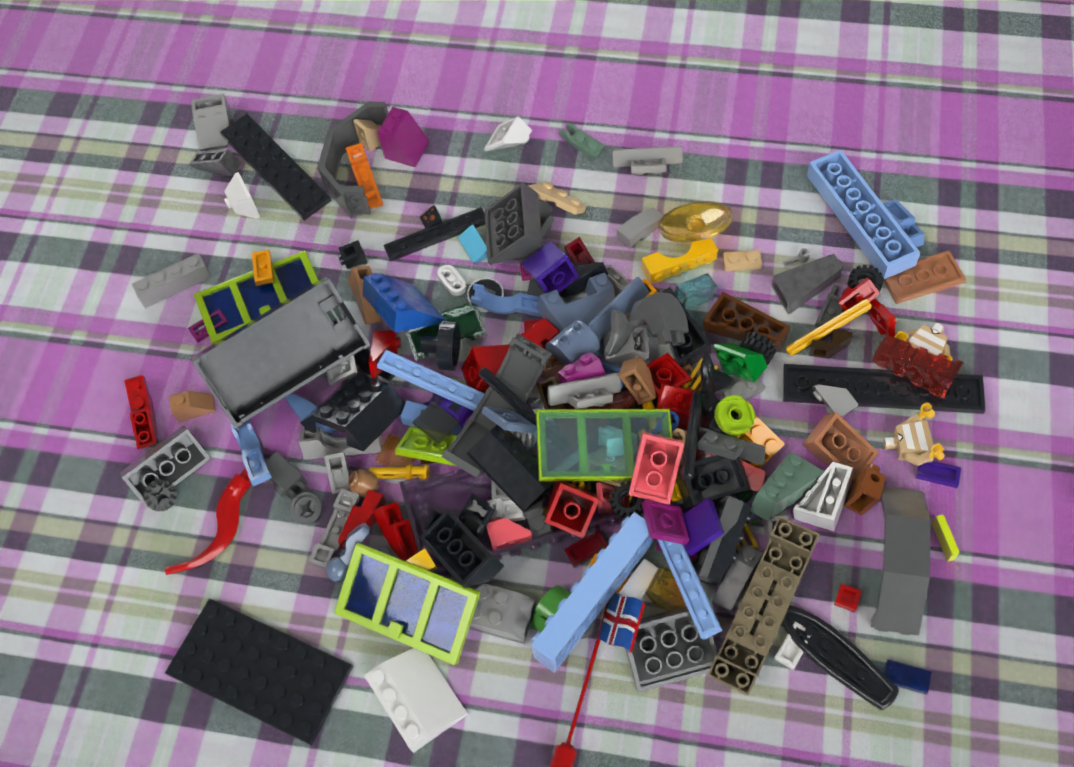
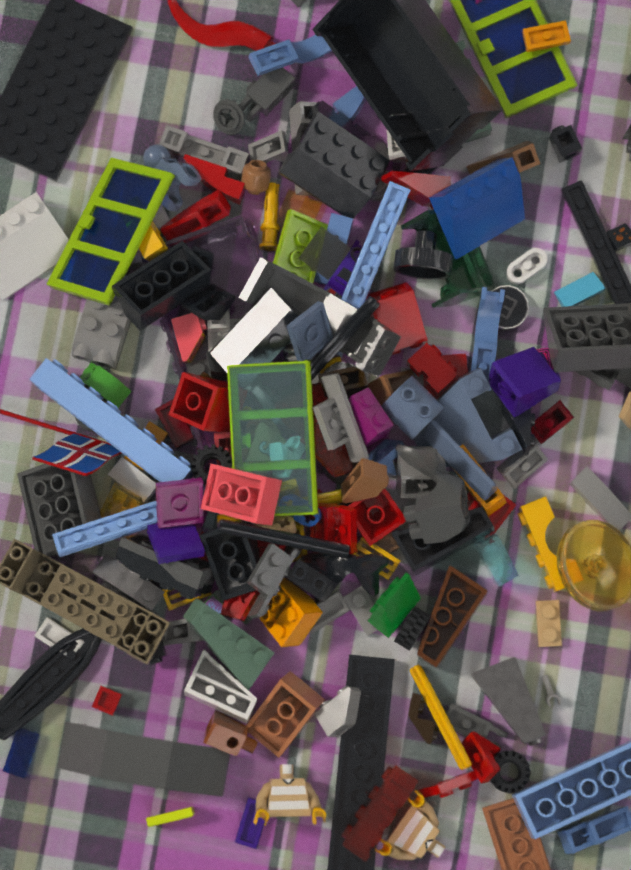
camera: 90 degrees right, 20 degrees up
(727, 423) = (310, 575): lime tile -> none

